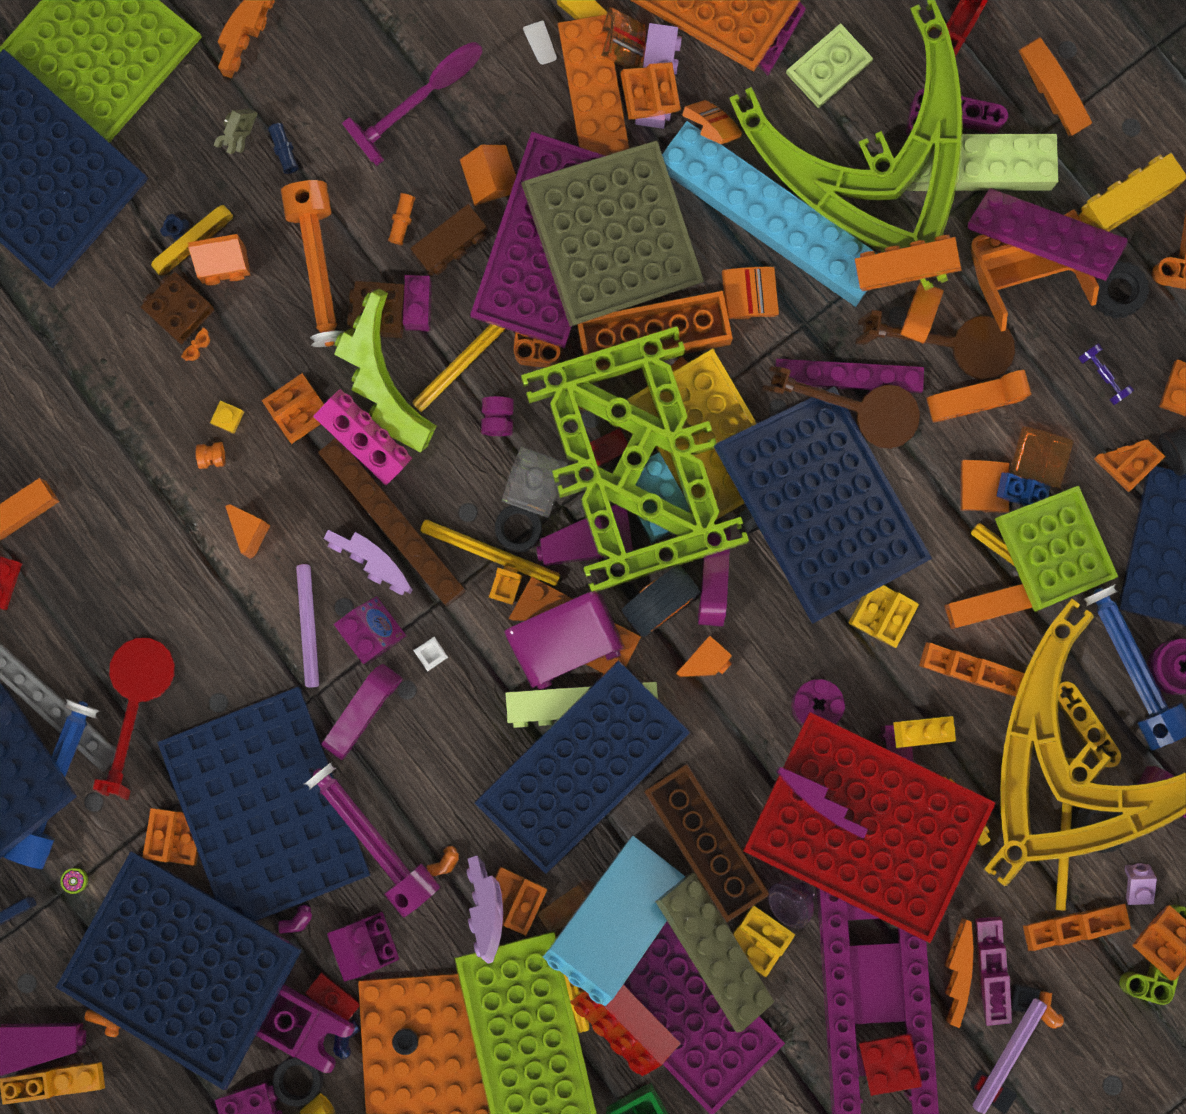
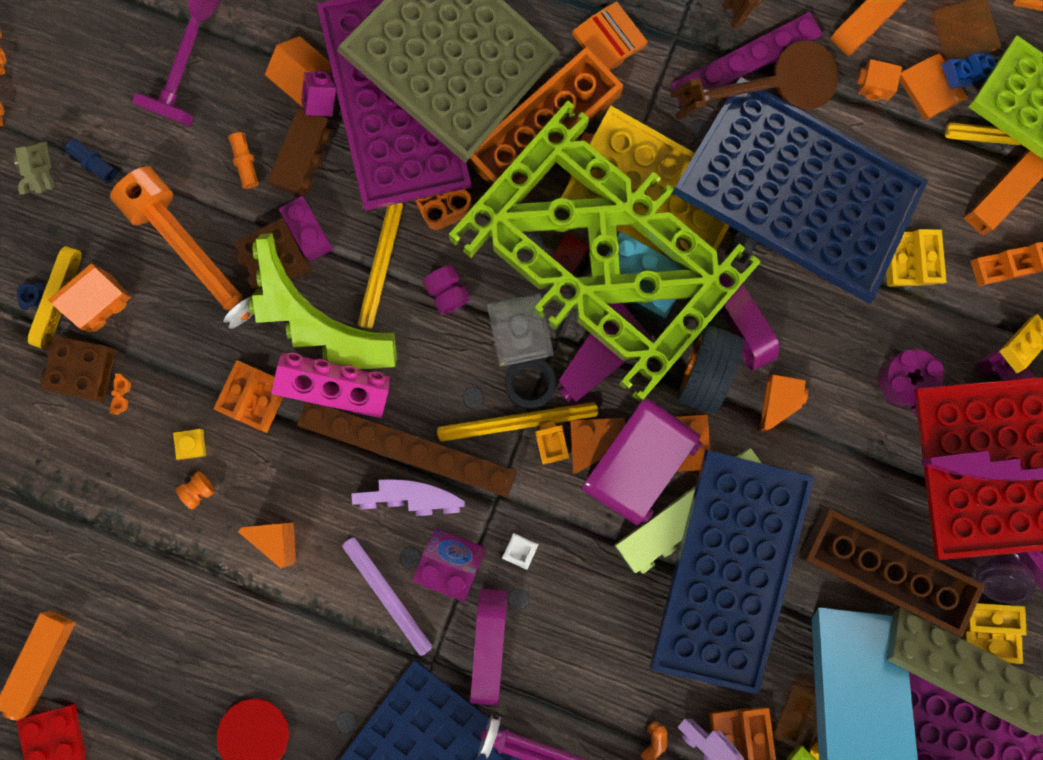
camera: 30 degrees left, 0 degrees up
(490, 203) = (318, 93): none -> magenta brick
(942, 455) = (878, 80): none -> orange brick

